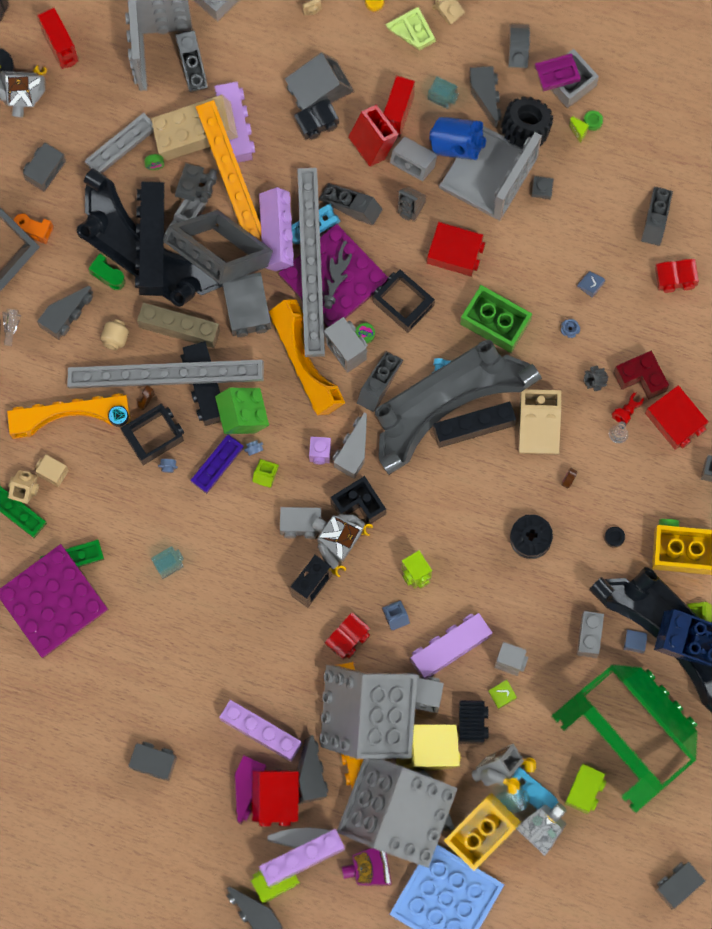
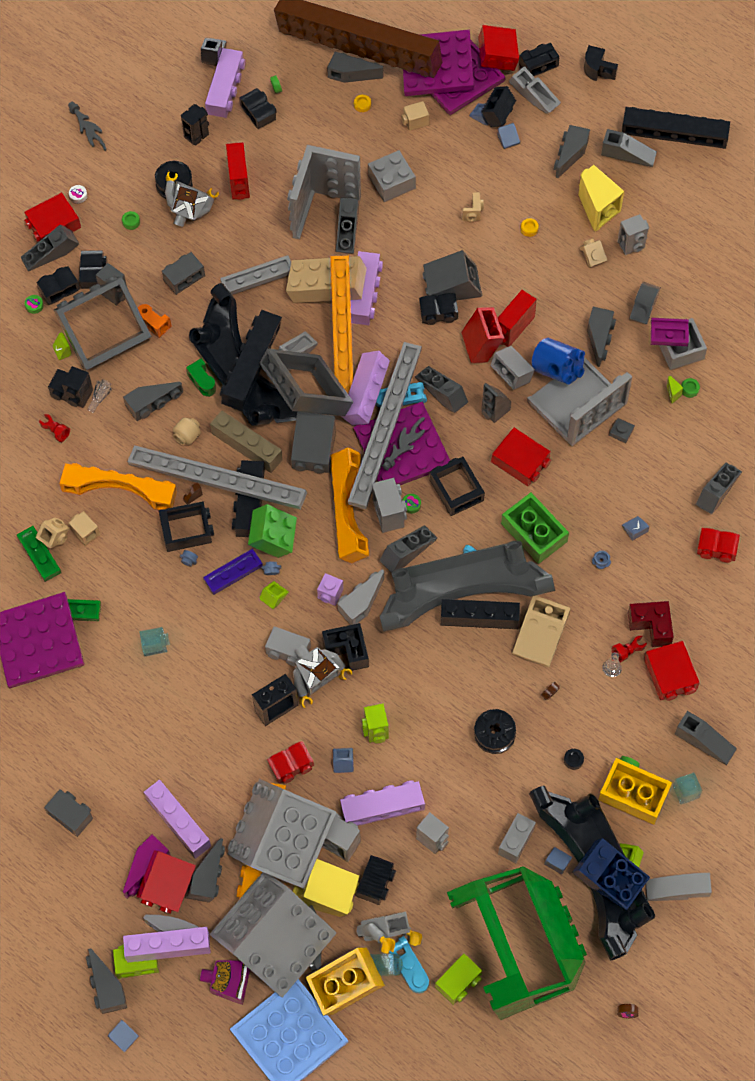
camera: 20 degrees right, 10 degrees down
(118, 416) = (160, 498): tile -> none
(154, 162) = (280, 299): bright green tile -> none
(190, 180) = (304, 327): dark grey plate -> none
(412, 29) = (554, 260): yellowish green wing -> none
(443, 93) = (560, 321): clear light blue brick -> none
(502, 694) = (414, 865): lime slope -> none
(528, 111) = (630, 360): black tyre -> none
(543, 827) = (405, 999): light grey torso -> none
(595, 378) = (608, 610): dark grey gear -> none

